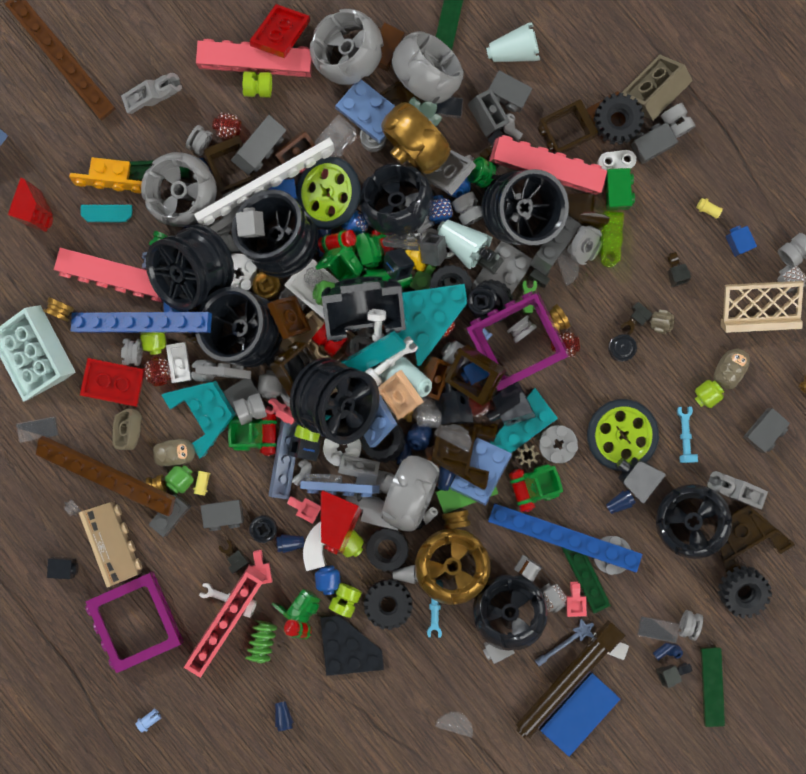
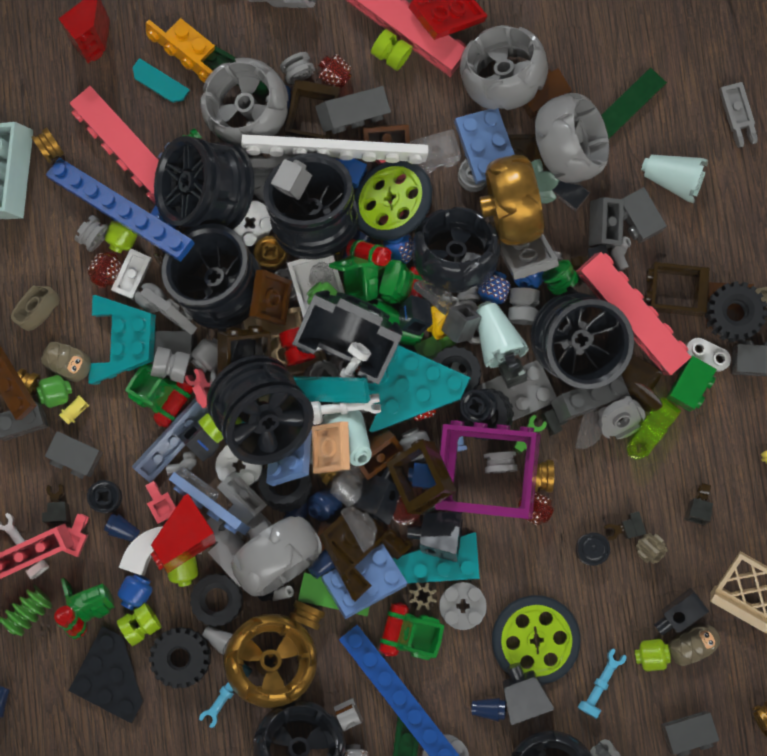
camera: 30 degrees right, 5 degrees down
(112, 382) = (53, 251): red plate -> none
(710, 344) = (689, 605): none -> black torso

